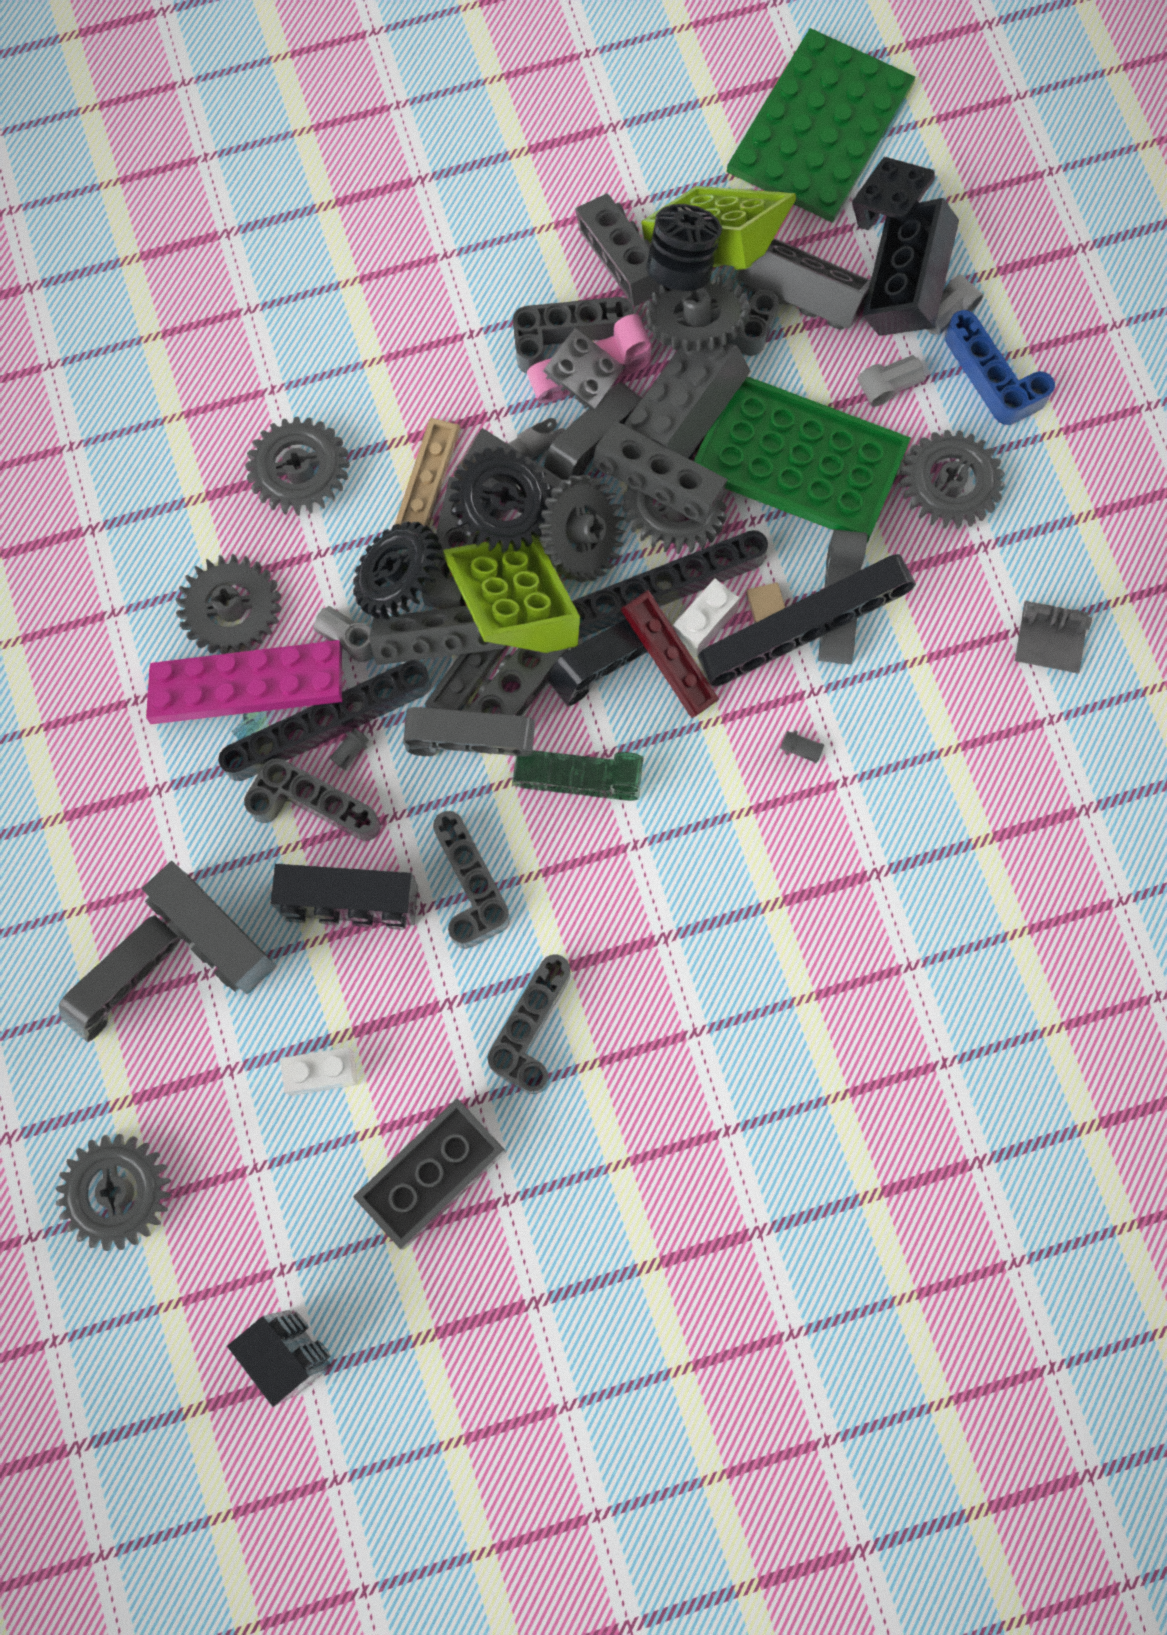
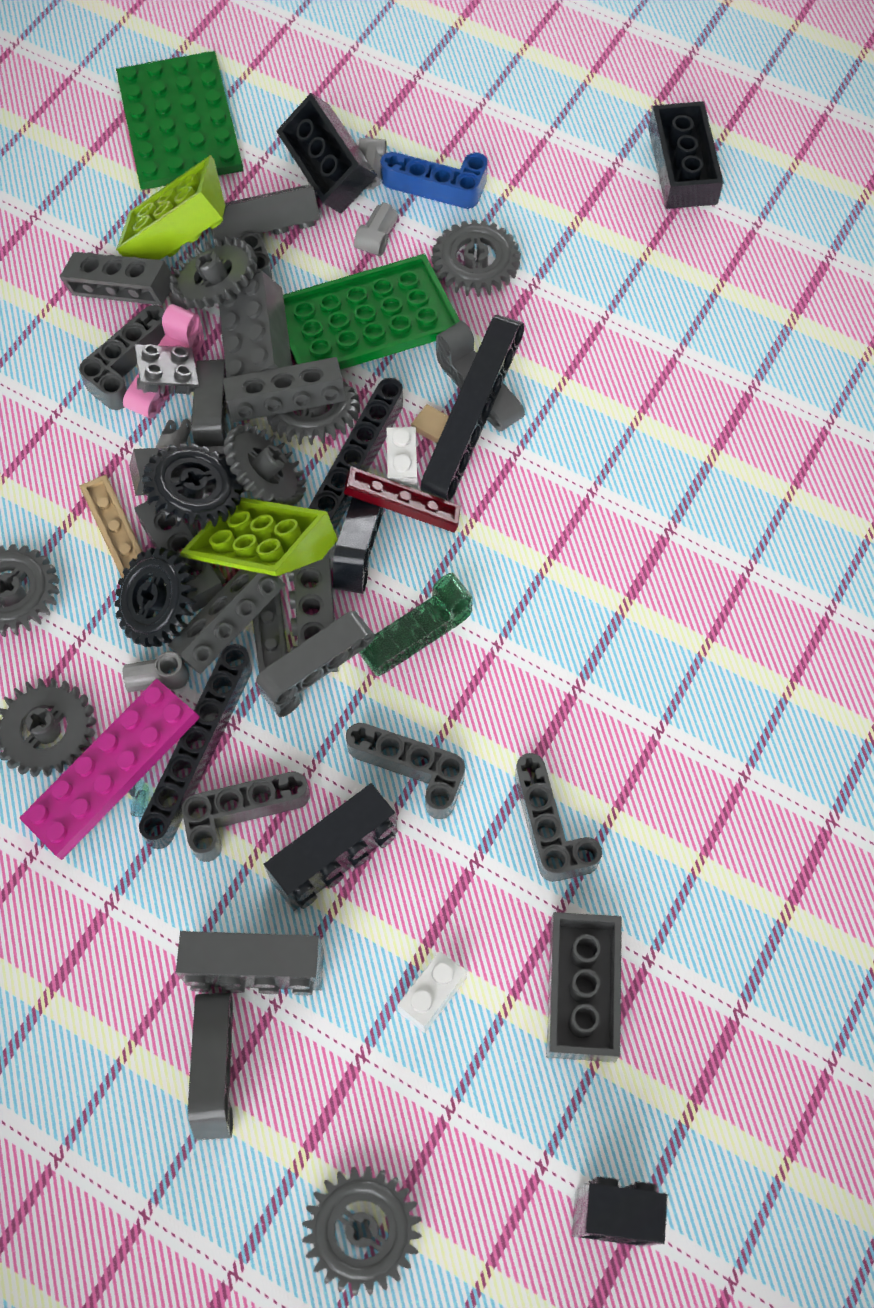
camera: 45 degrees left, 10 degrees down
(349, 748) = (233, 750): dark grey pin -> none
(683, 247) = (169, 233): black wheel -> none
(801, 746) = (538, 492): dark grey pin -> none
(891, 191) = (267, 117): black bracket -> none
(1052, 636) = (629, 302): flat silver hinge -> none

